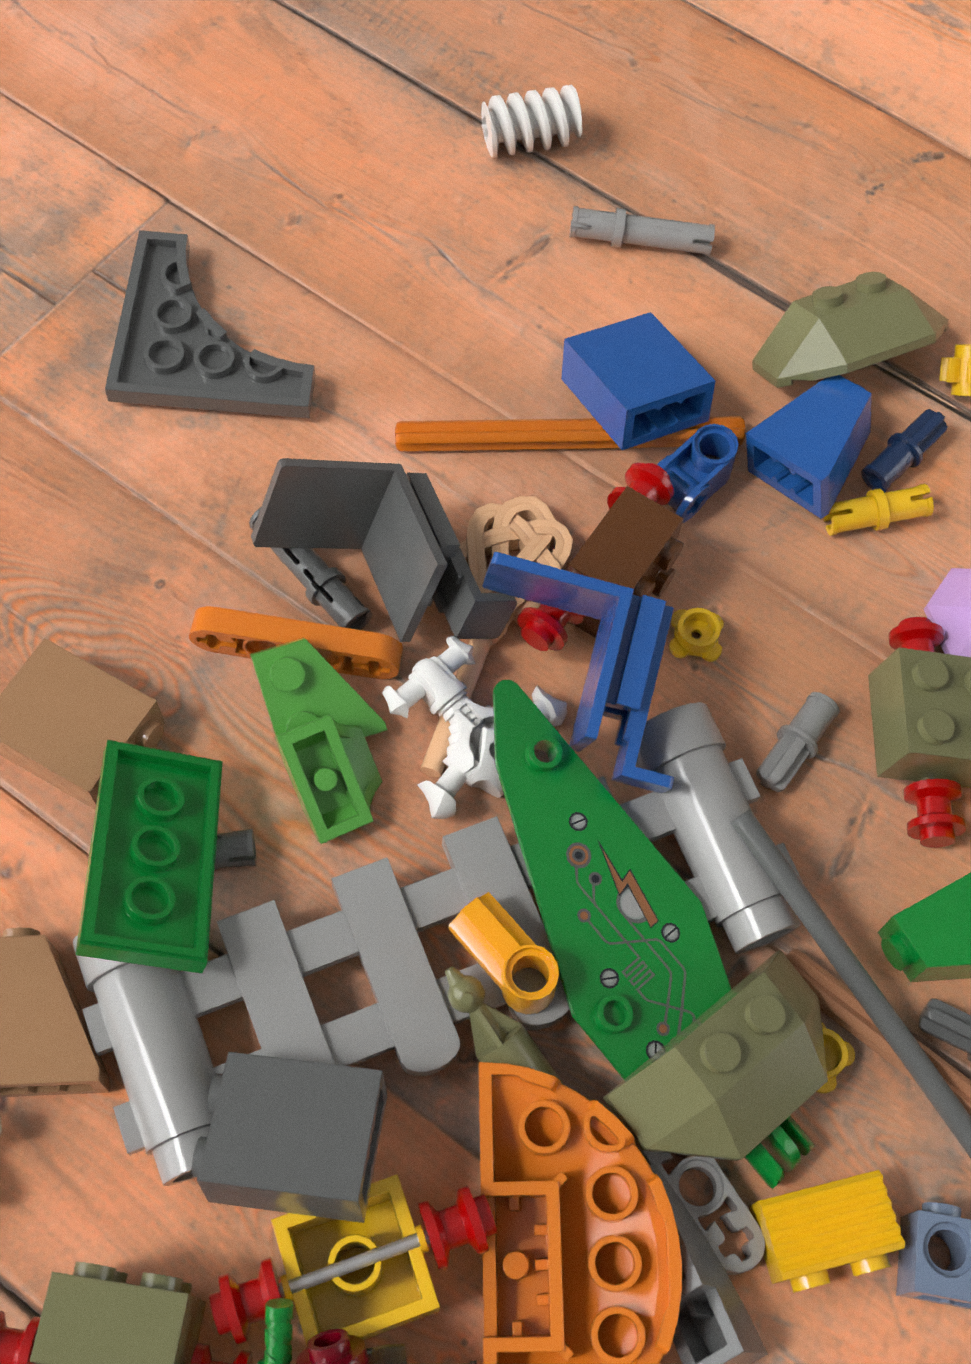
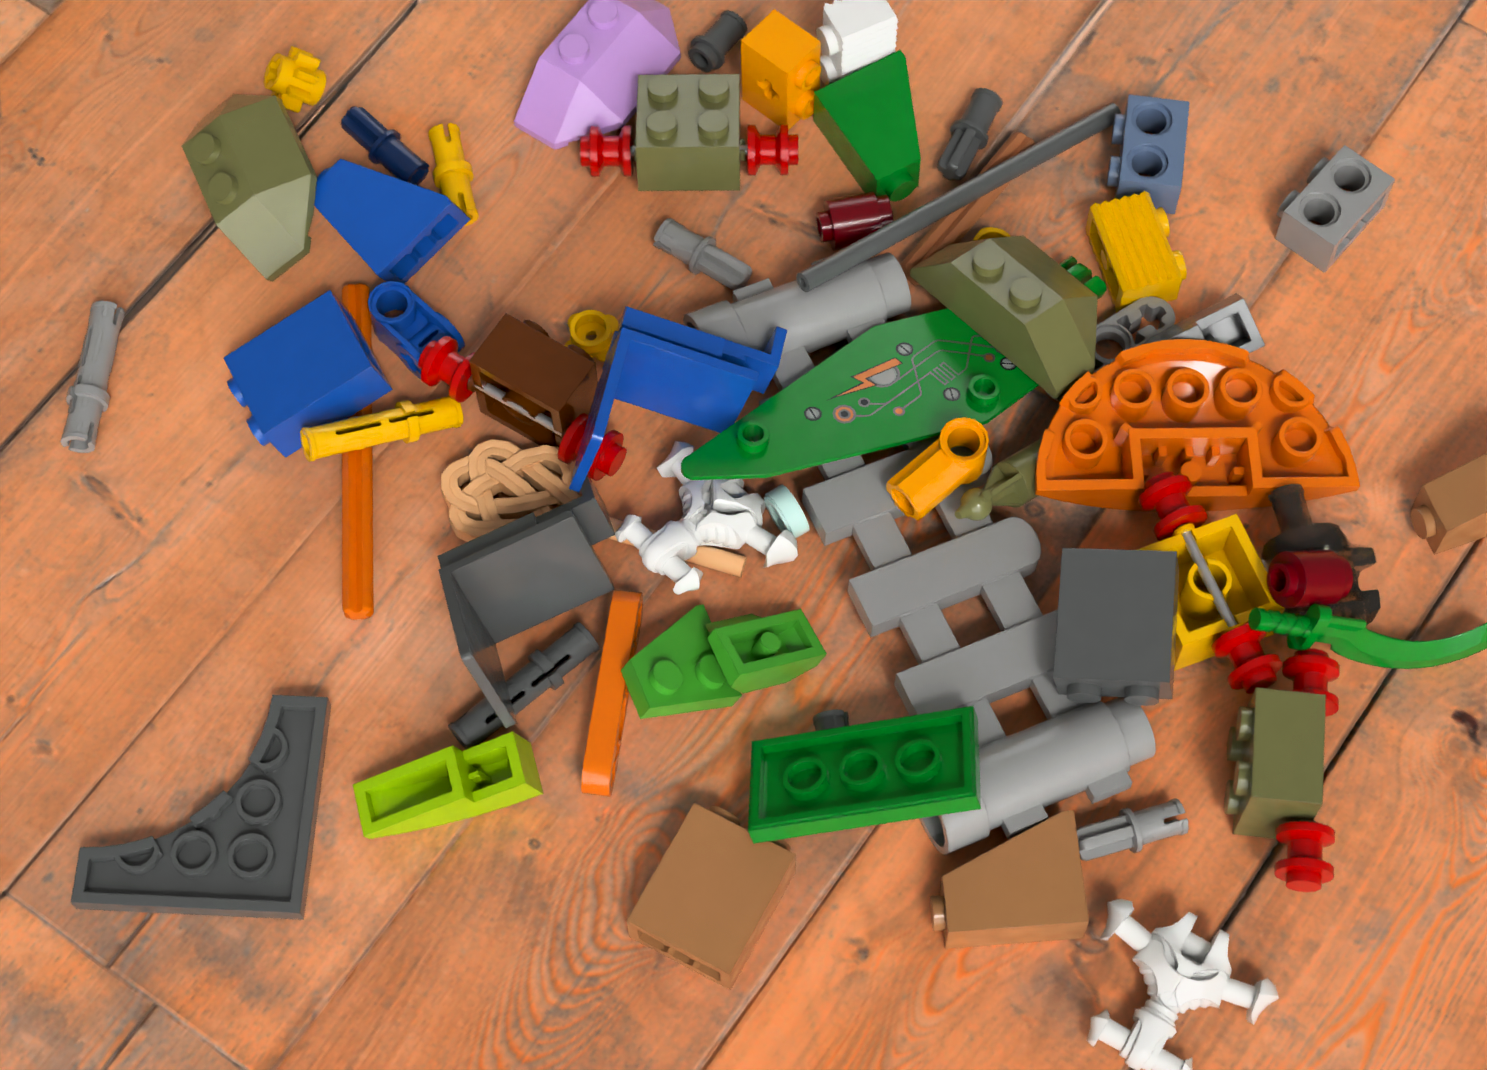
camera: 85 degrees left, 0 degrees up
(86, 1154) = (1131, 830): none -> light grey axle
(213, 508) = (448, 787): none -> lime slope
(483, 806) = (786, 511): none -> light aqua tile
(561, 389) = (403, 423): none -> yellow pin
(849, 898) = (852, 218): none -> dark red brick

